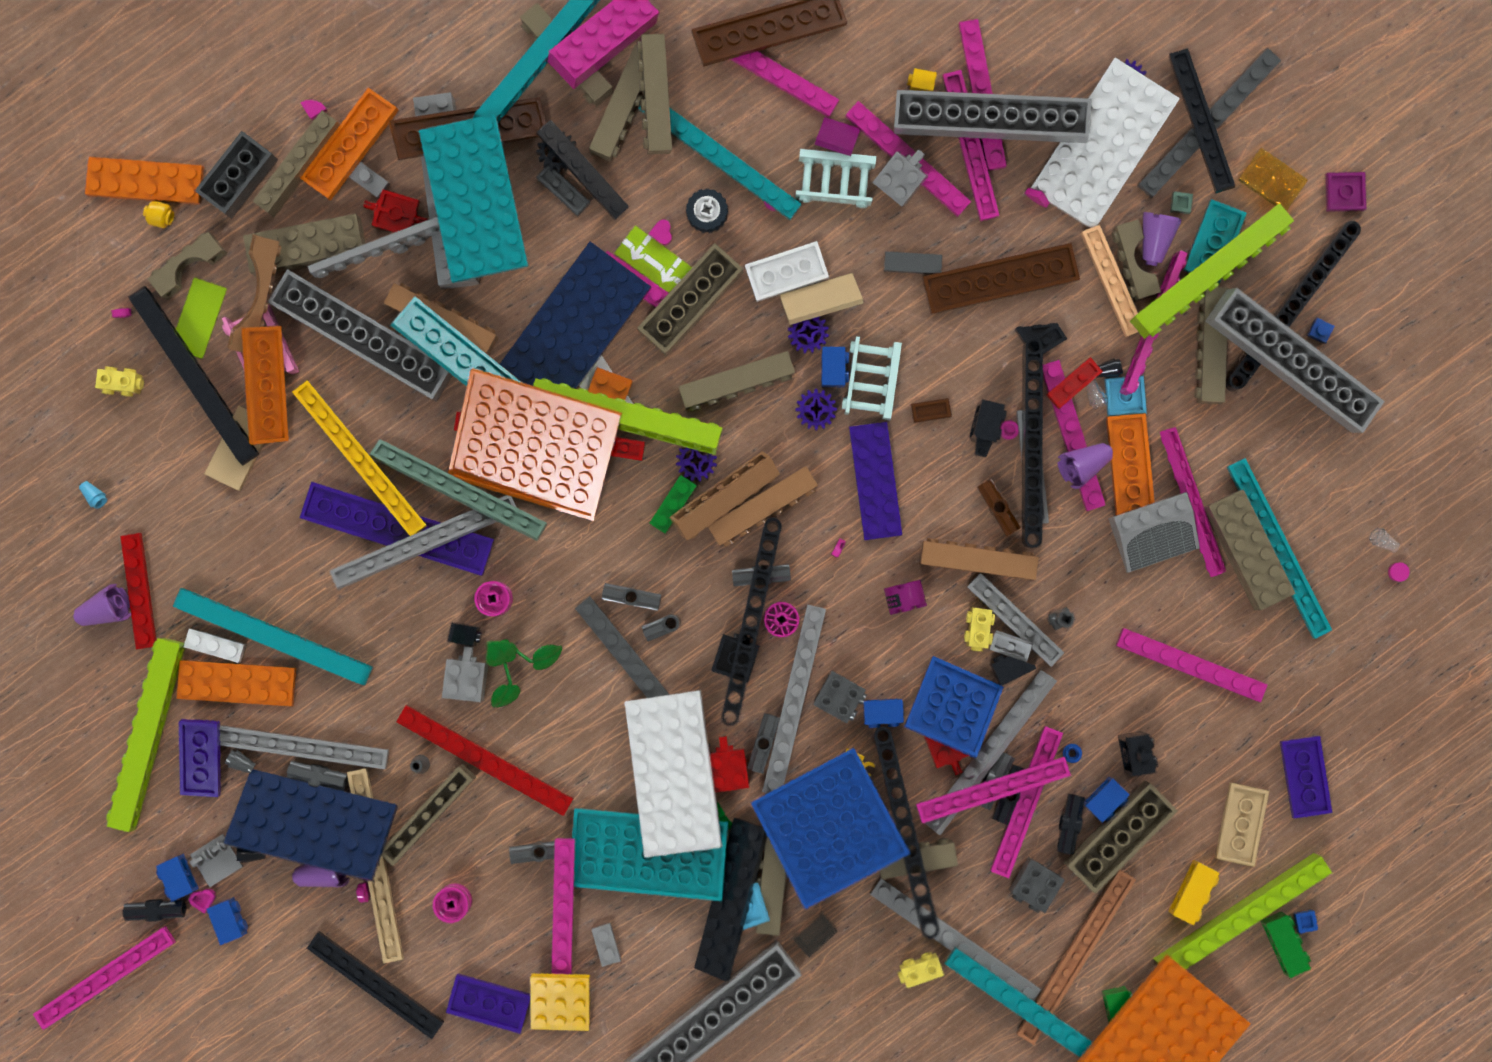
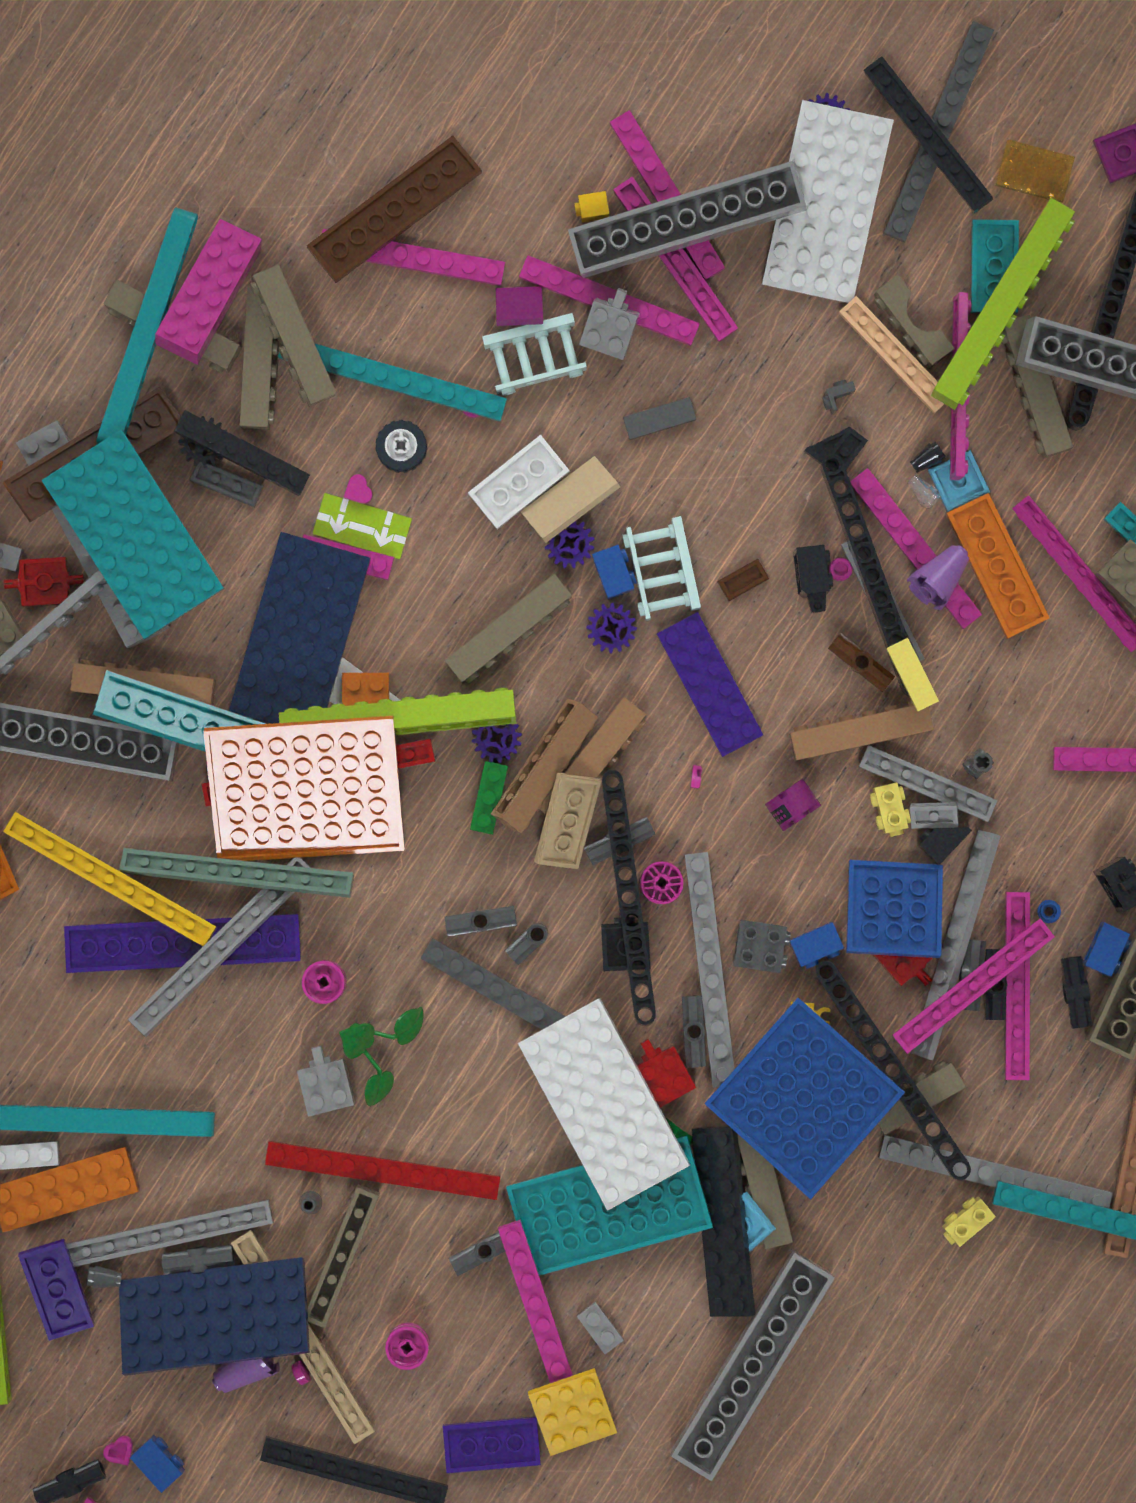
camera: 25 degrees left, 0 degrees up
(176, 877) = (80, 1436): blue brick -> none
(215, 861) = (118, 1400): light grey hinge -> none
(248, 856) = (152, 1380): black cone -> none
(464, 634) = (306, 1034): black slope -> none
(690, 300) = (421, 556): dark tan brick -> none
(726, 544) = (567, 821): none -> tan tile
(816, 934) = (834, 1226): clear smoke panel -> none
(1001, 278) = (766, 399): reddish brown plate -> none
(1035, 531) = (912, 674): none -> light yellow tile
(1036, 885) = (1063, 1076): dark grey brick -> none
(1037, 196) = (774, 290): dark pink tile -> none
(1057, 292) = (839, 390): none -> dark grey bracket
(1074, 383) = (894, 489): red plate -> none
(1155, 532) = (1049, 624): slope -> none
(1158, 236) = (928, 285): medium lavender cone -> none
(1181, 202) = (940, 236): sand green plate -> none

